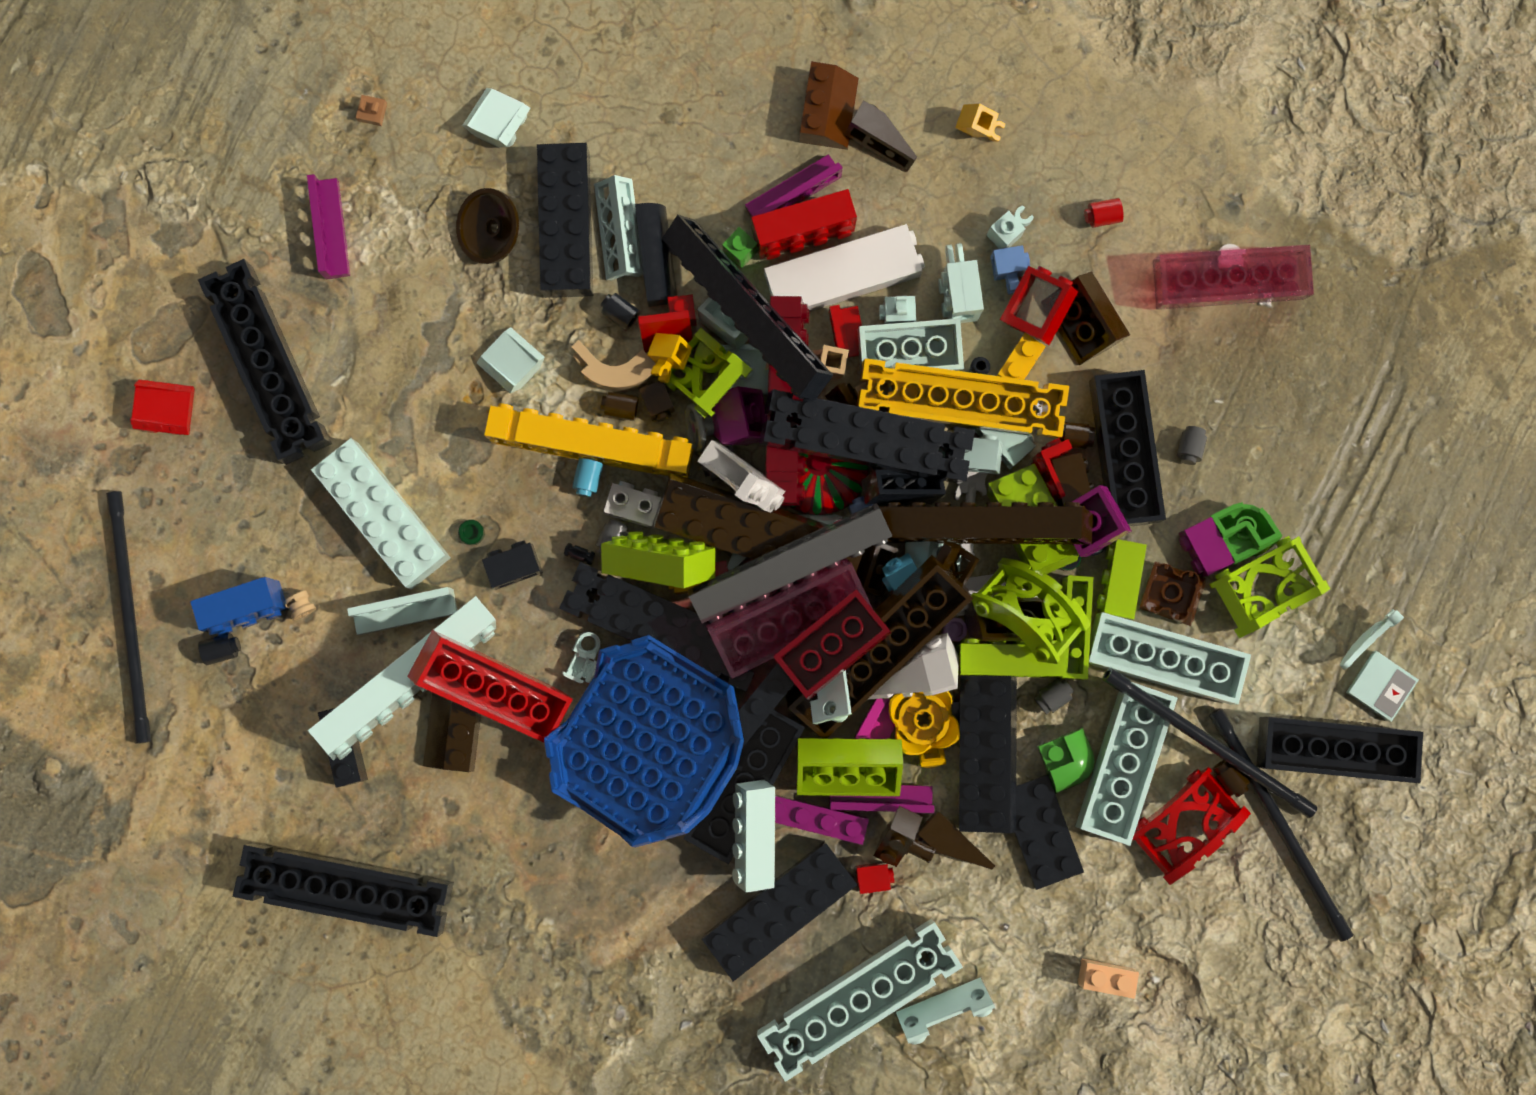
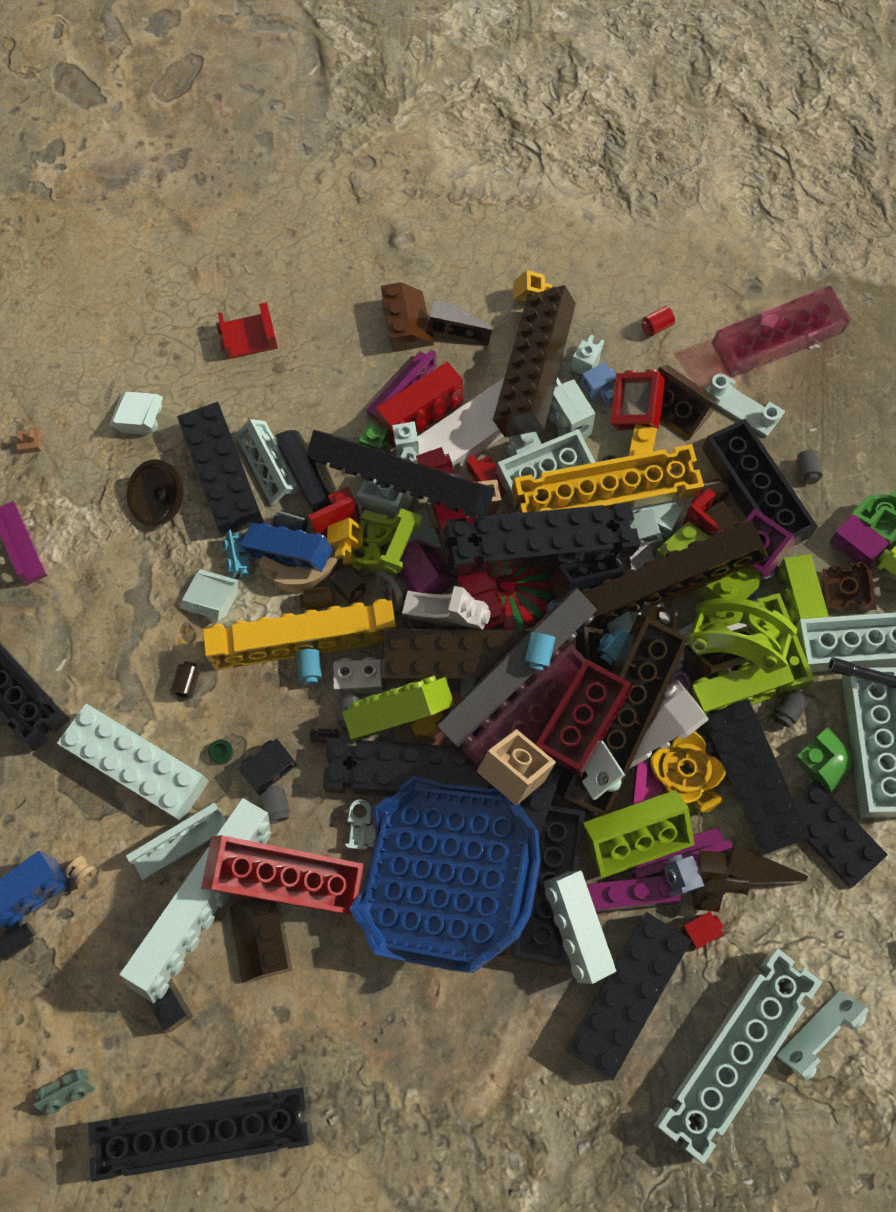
camera: 15 degrees left, 15 degrees down
(217, 806) = (53, 1097): none -> sand green hinge
(458, 445) = (185, 680): none -> dark brown brick
(508, 607) = (276, 804): none -> dark grey brick
(552, 315) = (235, 563): none -> medium azure hinge
(606, 340) = (287, 546): none -> blue brick
(646, 63) = (247, 334): none -> red panel
(746, 672) = (516, 766): none -> tan brick
(770, 267) = (406, 440): none -> light aqua brick
(816, 560) = (539, 650): none -> medium azure brick
(871, 824) = (682, 875): none -> sand blue brick
(944, 221) = (534, 362): none -> dark brown brick
(1154, 348) = (741, 407): none -> light aqua brick

